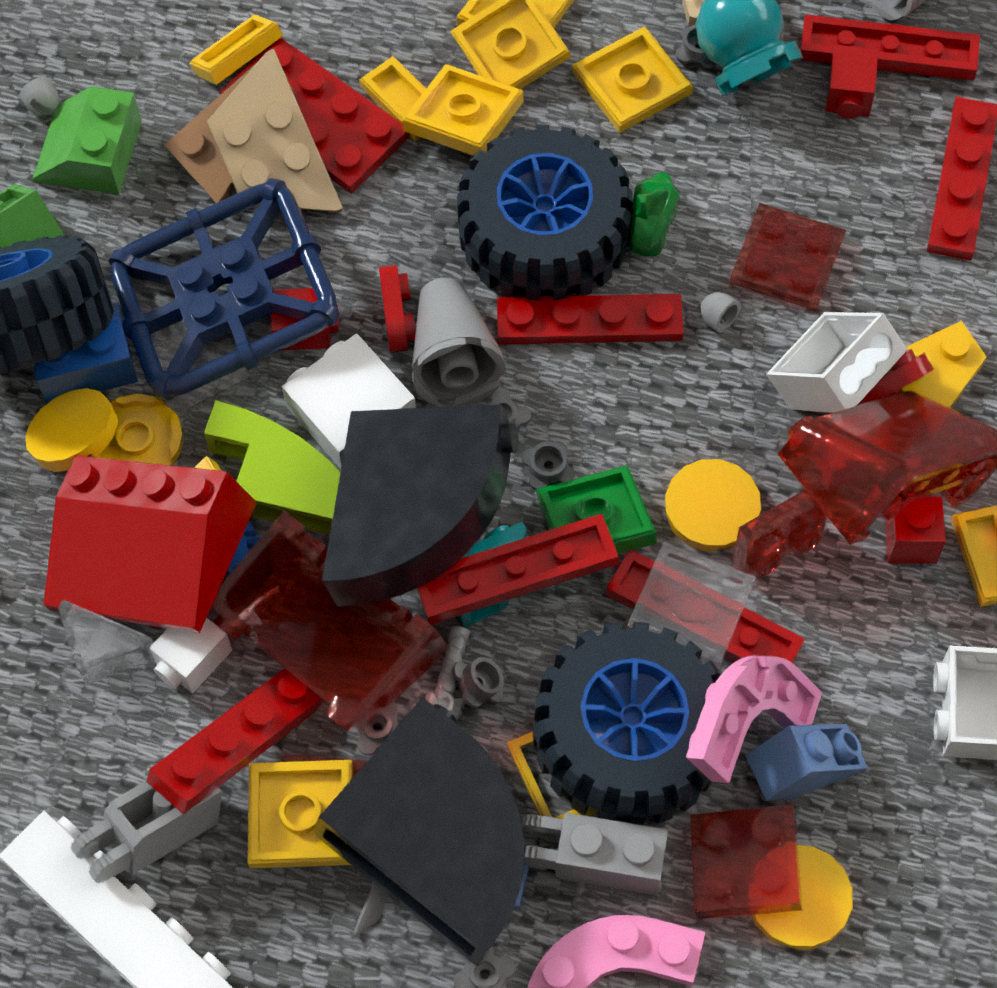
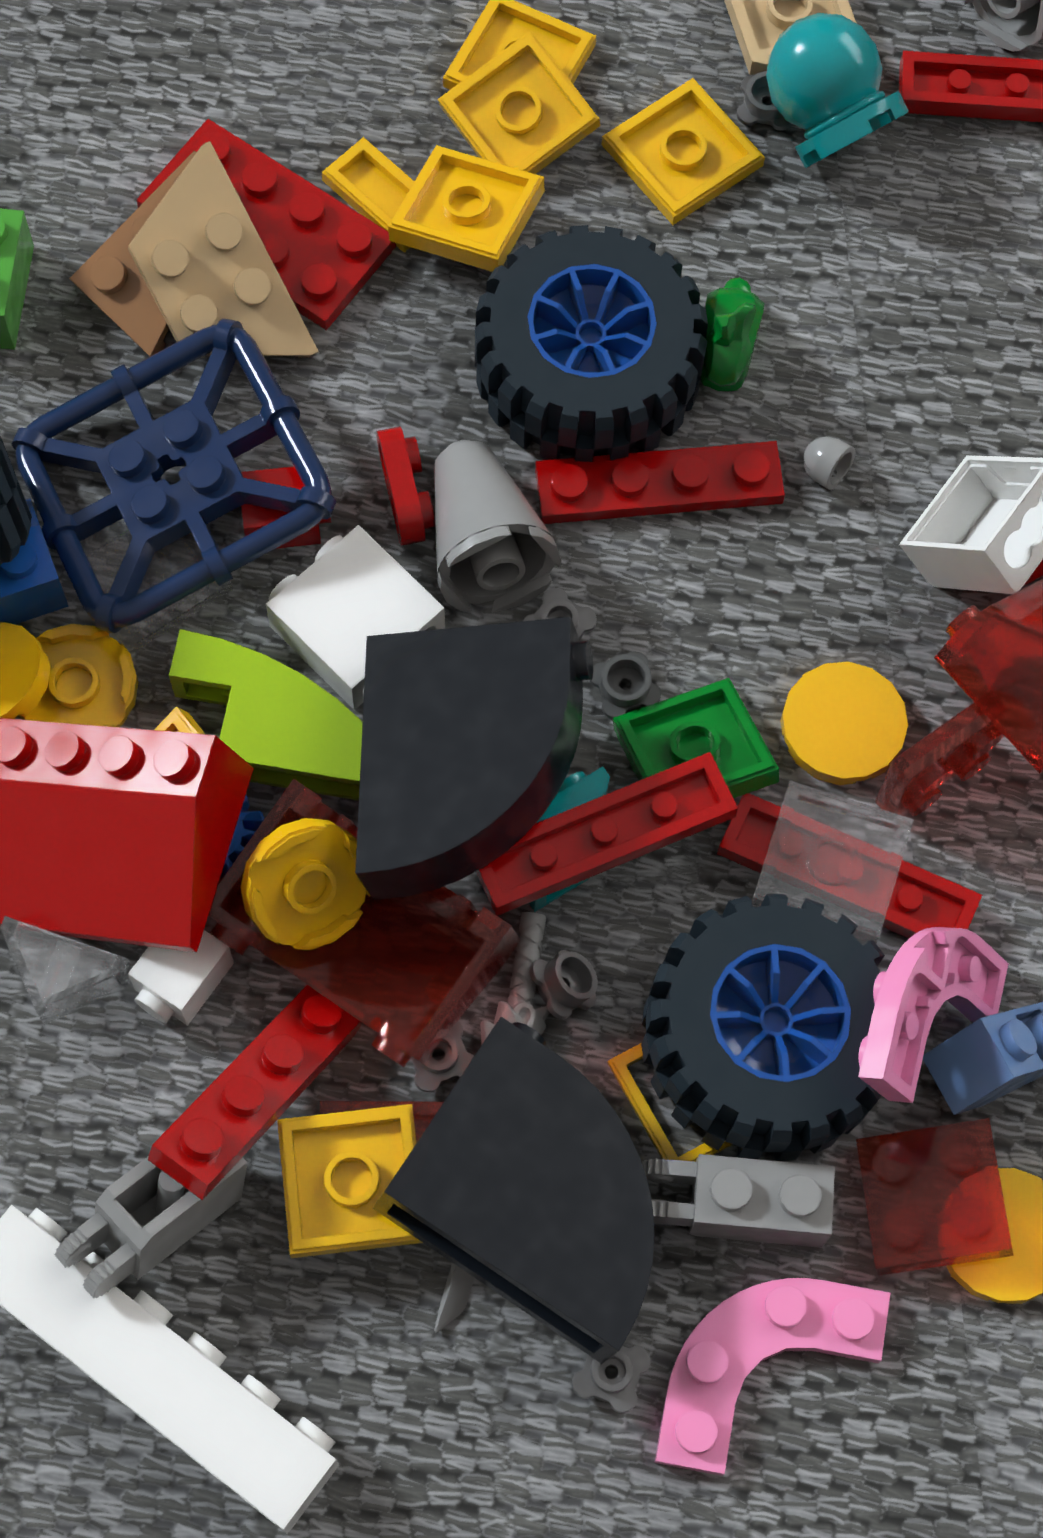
camera: 10 degrees left, 5 degrees up
(235, 49) = (152, 139): yellow tile -> none
(285, 590) = (304, 884): none -> yellow tile
(787, 256) = (910, 381): clear red plate -> none
(851, 81) = (972, 138): red brick -> none

